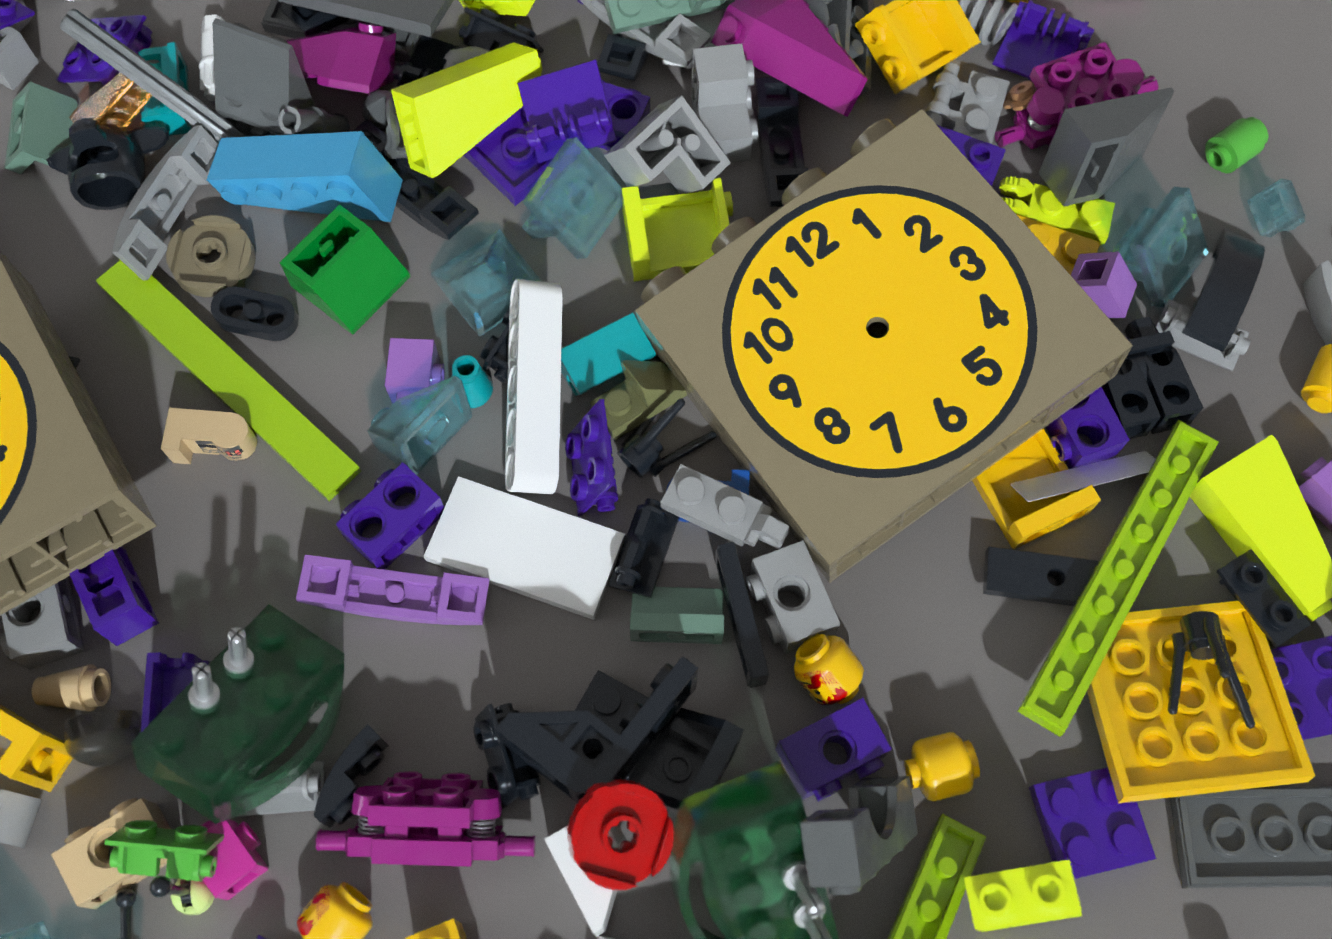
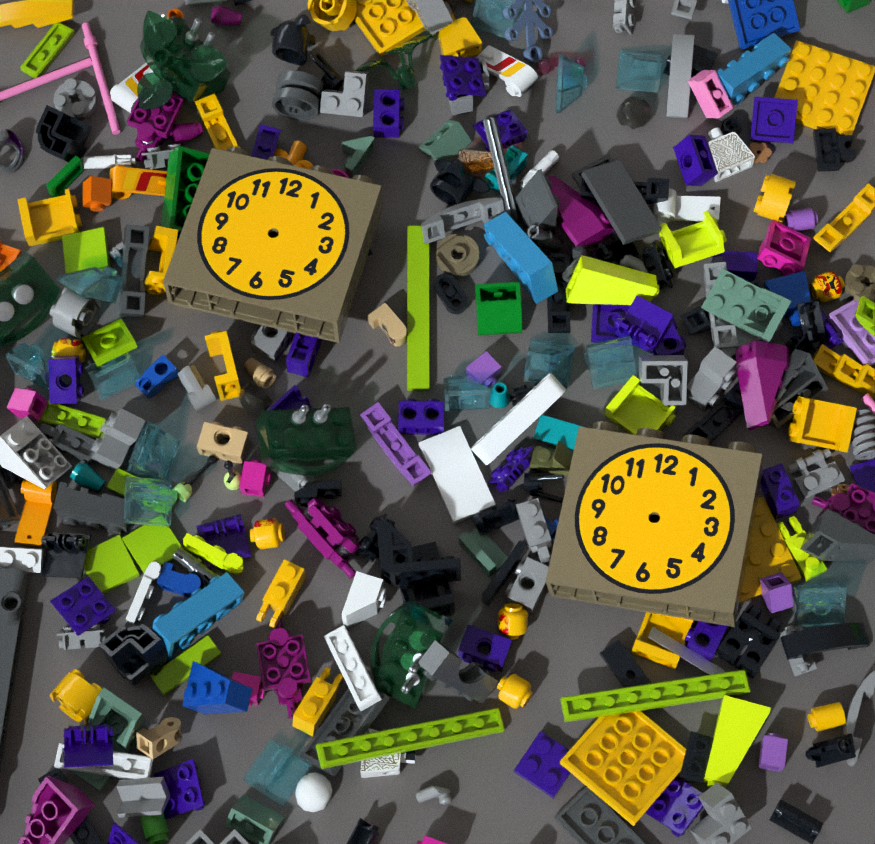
camera: 50 degrees right, 0 degrees up
(184, 848) = (245, 461): bright green hinge -> none
(635, 859) = (375, 604): red plate -> none
(1023, 896) = (490, 751): neon yellow panel -> none
(1204, 640) = (651, 744): black plant -> none

